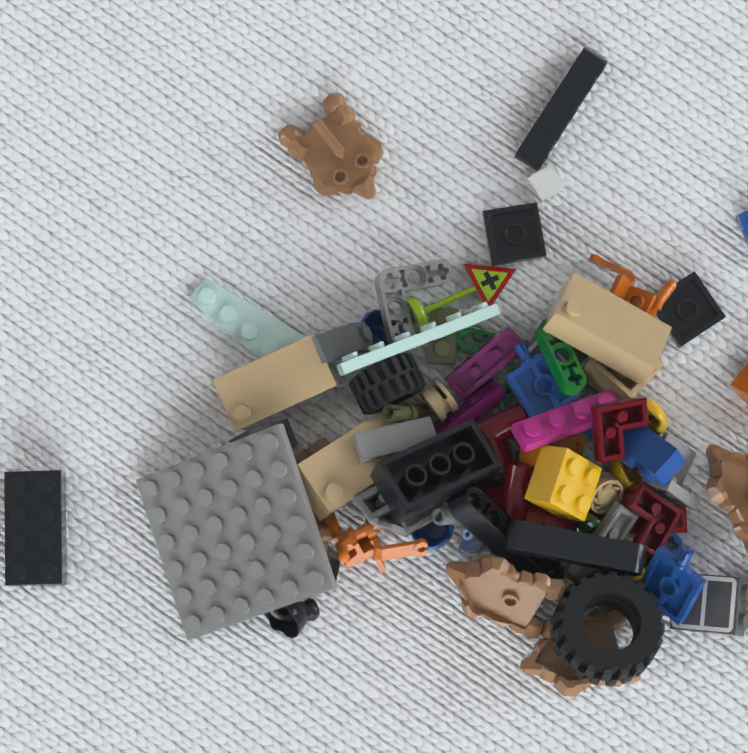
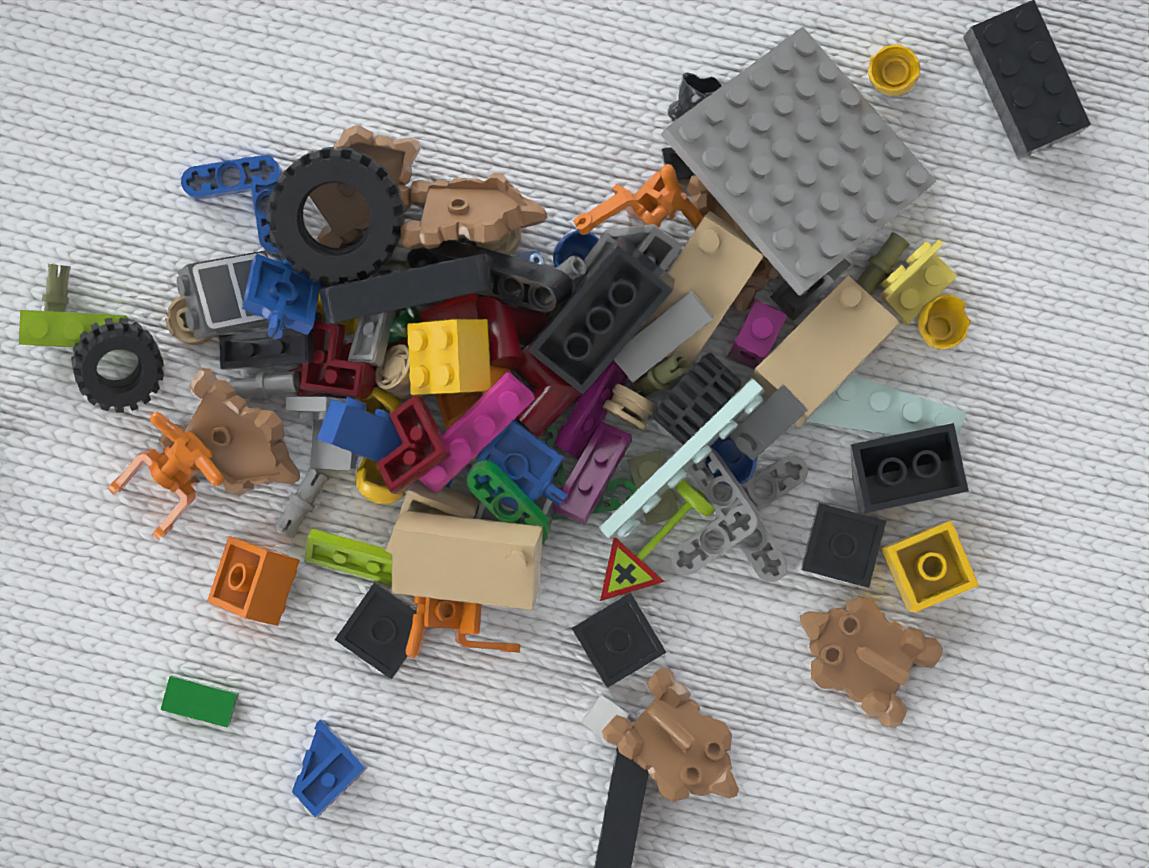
camera: 160 degrees right, 5 degrees up
(132, 576) = (894, 70): none -> yellow hair
(176, 370) = (943, 322): none -> yellow hair
(183, 408) = (919, 283): none -> light yellow bracket
(205, 432) = (881, 264): none -> olive pin
(251, 270) = (907, 468): none -> black slope
(264, 195) = (929, 566): none -> yellow brick
(318, 418) = (757, 334): none -> magenta torso
(320, 237) = (843, 545): none -> black plate
(340, 297) = (789, 484): none -> light grey beam
(501, 142) = (676, 742): none -> medium nougat shield
(655, 682) = (259, 187): none -> blue beam
(691, 373) = (349, 556): none -> lime plate
(706, 555) = (260, 350): none -> black tile
(707, 526) = (266, 384): none -> light grey pin
(712, 428) = (301, 502): none -> light grey pin

